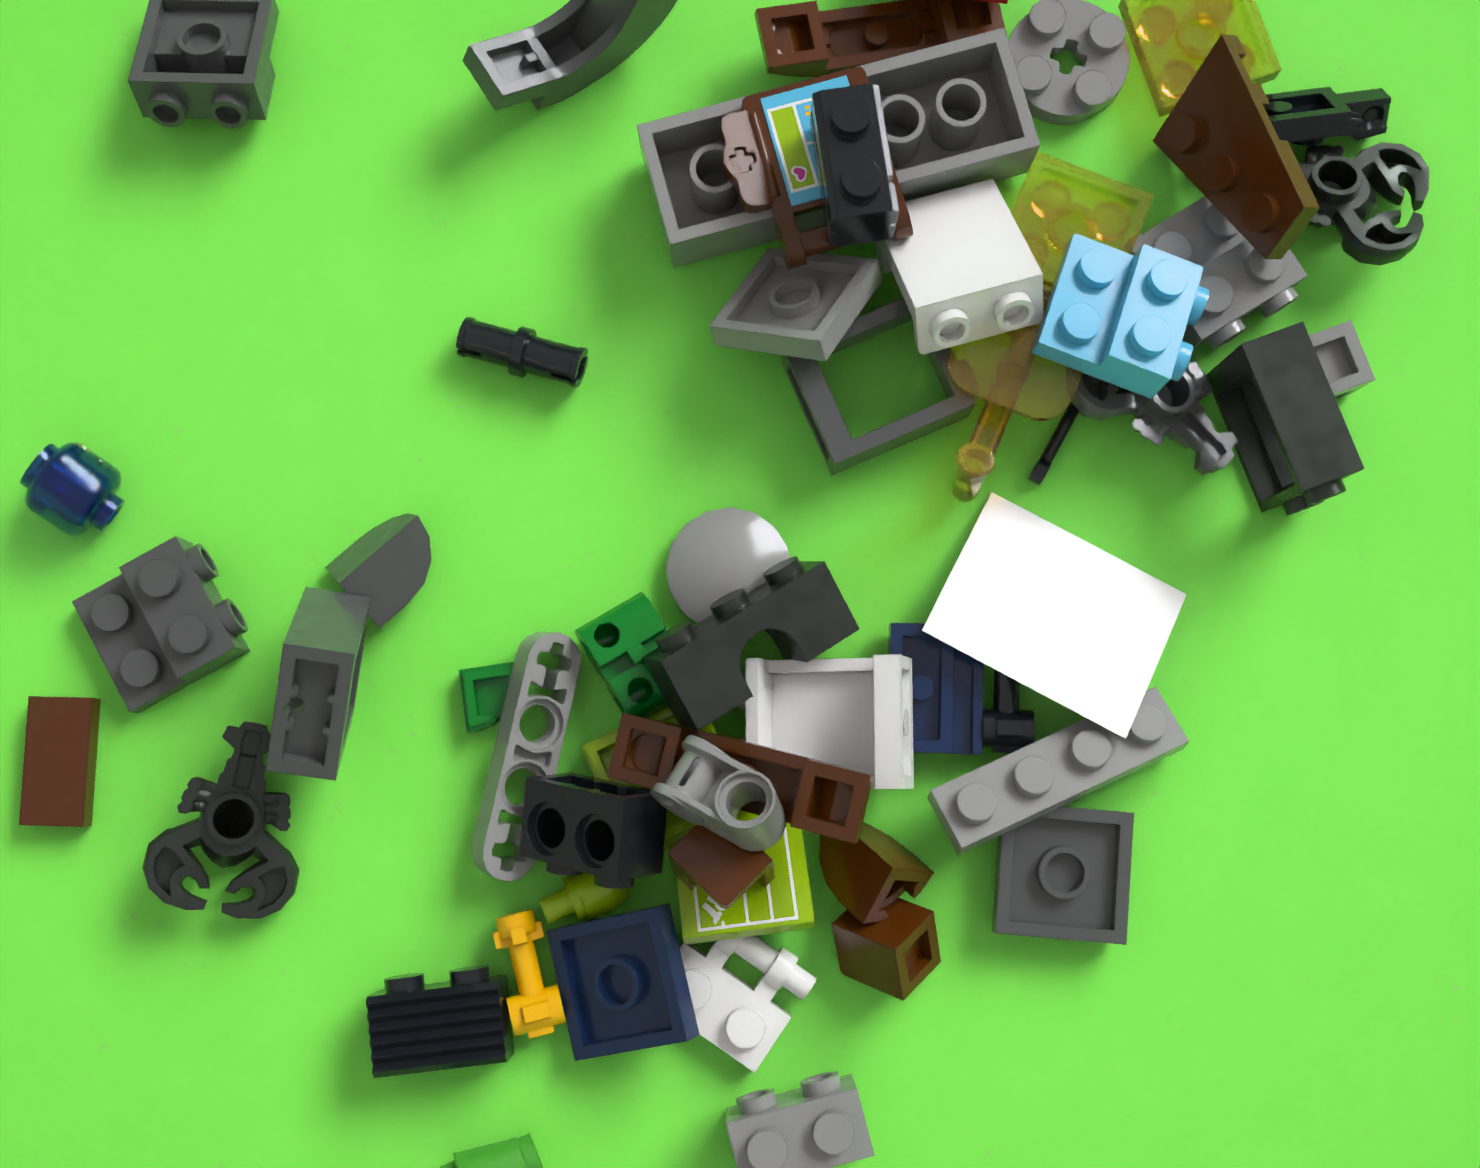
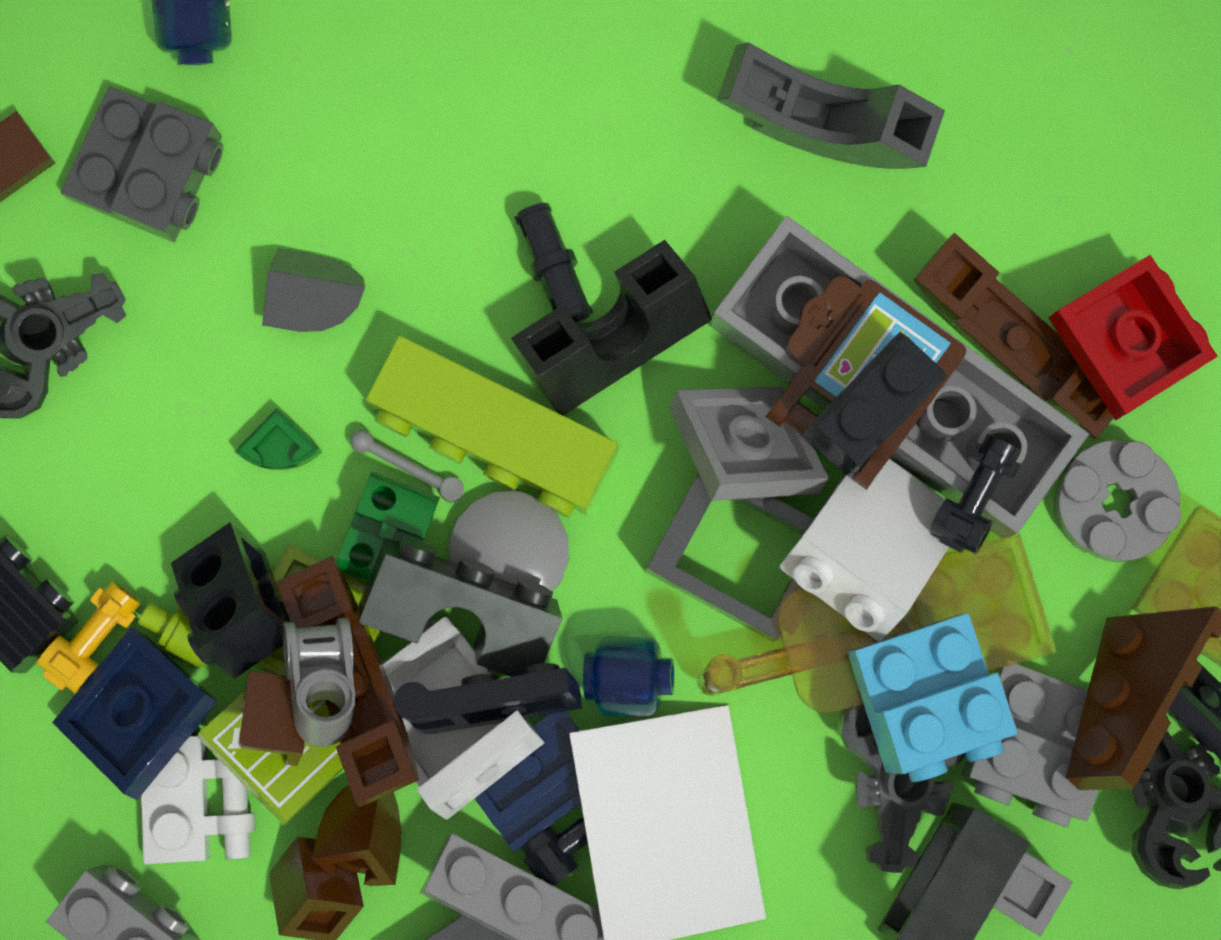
camera: 50 degrees right, 0 degrees up
(318, 683) = (179, 316): dark grey window -> none
(515, 752) = (245, 499): beam -> none
(617, 502) = (492, 426): none -> lime brick
(626, 296) = (653, 311): none -> pearl dark grey arch
(639, 580) = (450, 488): none -> light grey hinge
(844, 674) = (488, 700): none -> black plate
(909, 549) = (627, 676): none -> clear blue head
(1000, 179) = (962, 524): none -> black bar
(1045, 461) = (801, 725): black hinge -> none

